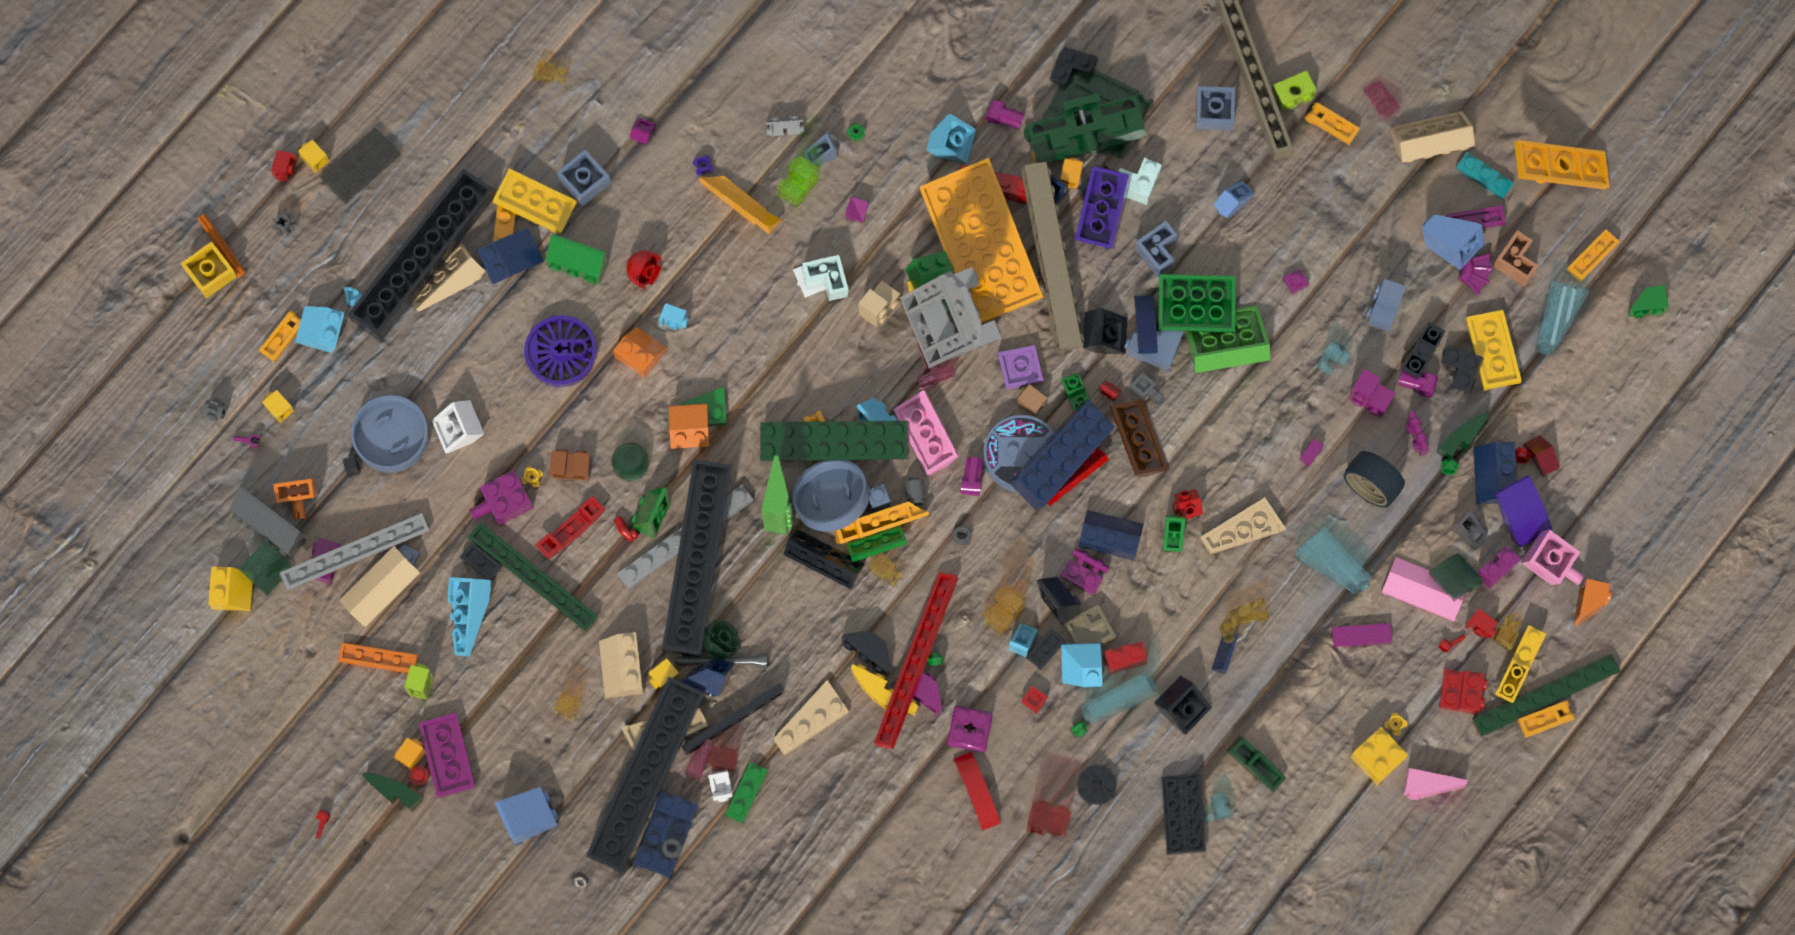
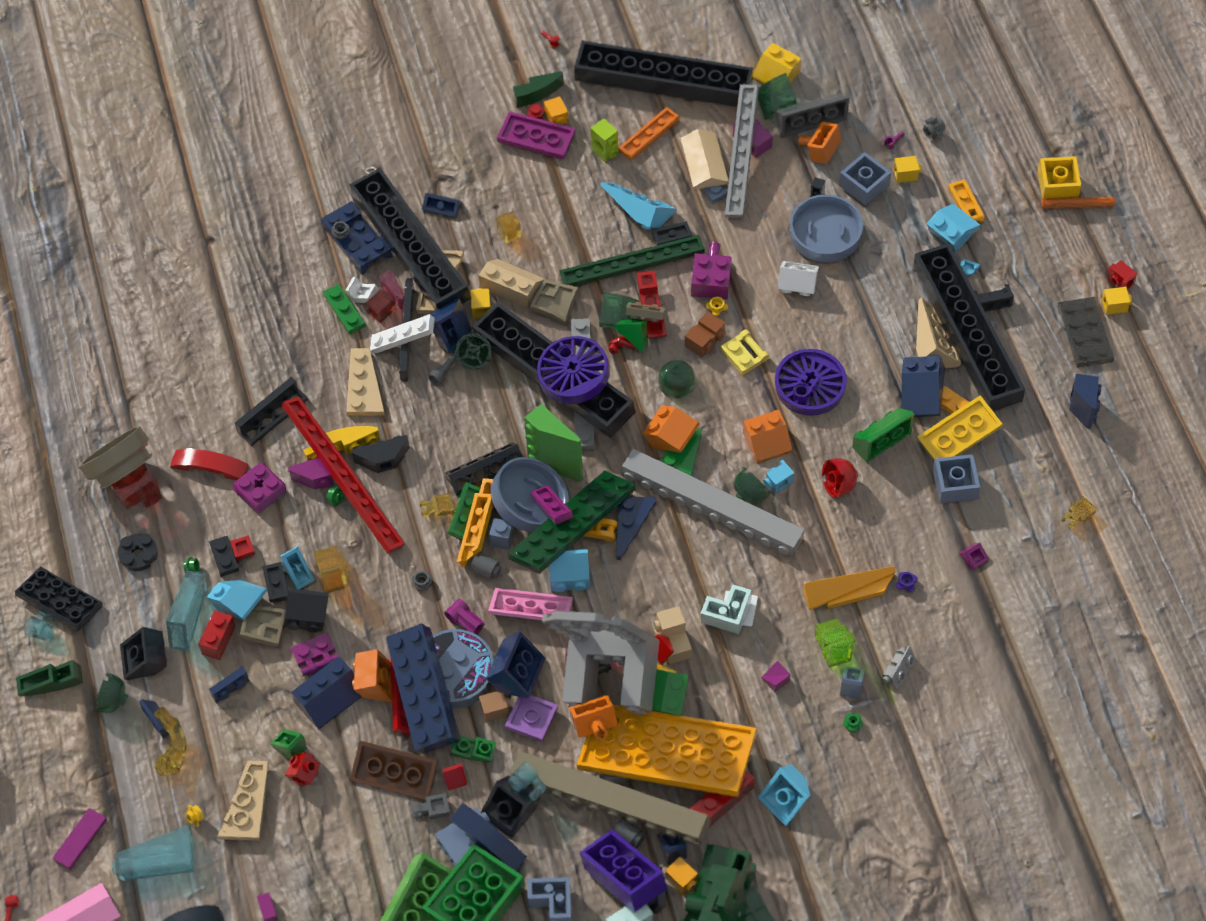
camera: 125 degrees right, 15 degrees down
(288, 224) = (1066, 250): dark grey gear -> none
(305, 683) = (661, 73): none -> black brick
(314, 431) = (865, 178): none -> sand blue brick
(372, 254) = (996, 299): none -> black hinge
(439, 120) = (1085, 399): none -> dark blue slope
(527, 814) = (446, 153): medium blue slope -> none
(570, 427) = (740, 357): none -> light yellow plate
(578, 788) = (441, 205): none -> dark blue slope
(584, 522) = (638, 310): none -> dark tan plate
(594, 552) = (614, 309): none -> clear green slope
(610, 522) = (635, 332): none -> green slope
(618, 615) = (554, 300): none -> dark tan plate
(652, 512) = (622, 369): green slope -> none
(701, 331) = (749, 488): none -> clear green cylinder
(714, 500) = (583, 365): none -> dark purple piece
(733, 355) = (713, 503): none -> light grey brick
(747, 709) = (402, 334): none -> white plate
(793, 408) = (631, 516): none -> dark blue wing
(832, 465) = (551, 504): none -> magenta tile
(892, 781) = (253, 419): none -> black fence
(895, 301) = (665, 648): none -> red slope
(991, 402) = (516, 666): none -> dark blue slope
(997, 305) = (594, 717): none -> orange brick
(999, 113) = (785, 852): magenta piece -> none
(1035, 854) = (117, 458): none -> dark tan wheel
(1050, 712) = (224, 556): none -> black plate
(1068, 230) = (629, 832): none -> dark grey brick
(1076, 505) = (372, 676): none -> orange slope
(1081, 324) = (525, 776): none -> clear light blue piece
(1152, 613) = (229, 684): none -> dark blue plate
(1235, 701) = (111, 694): none -> clear green cylinder
(1282, 560) = (194, 815): none -> yellow plate

